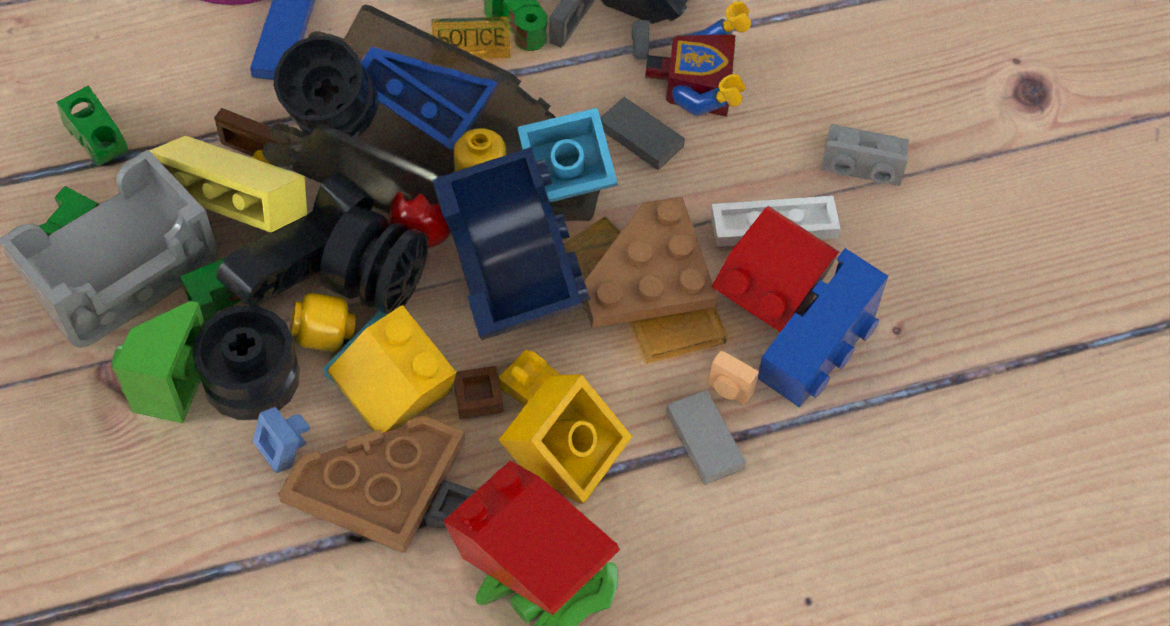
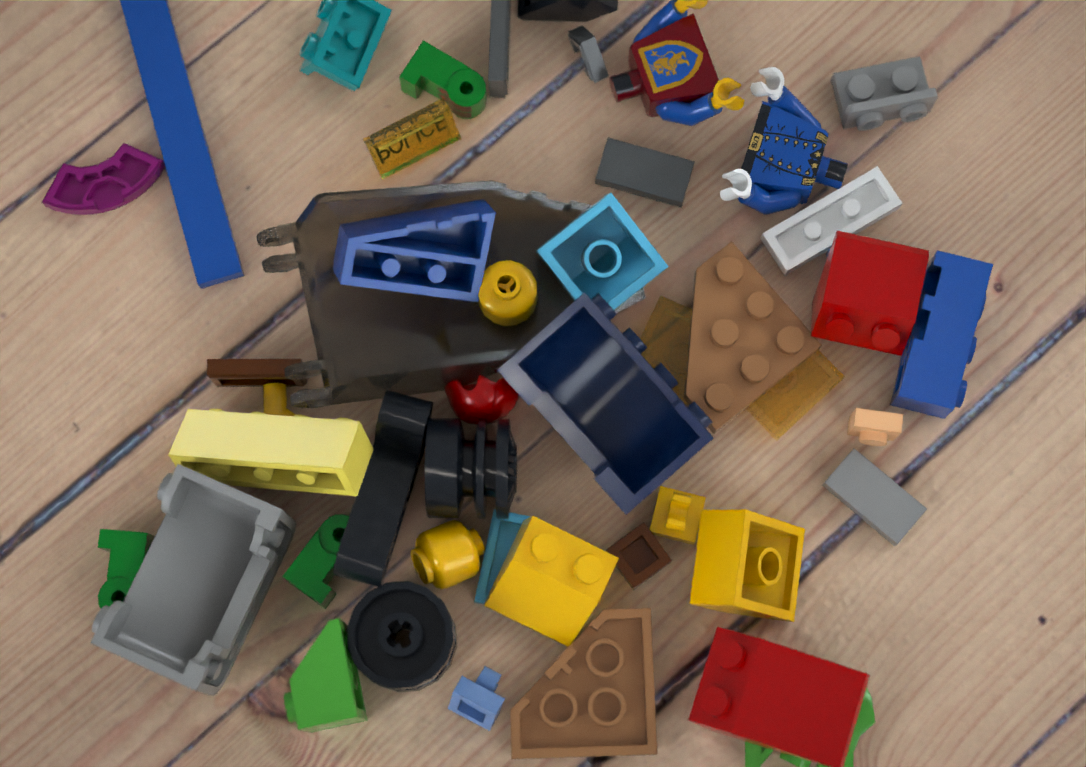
camera: 20 degrees left, 20 degrees up
(92, 126) = (78, 438): green leg -> none
(325, 84) = (328, 347): black wheel -> none
(446, 501) = (676, 683): dark grey tile -> none
(757, 157) = (782, 153): none -> blue torso

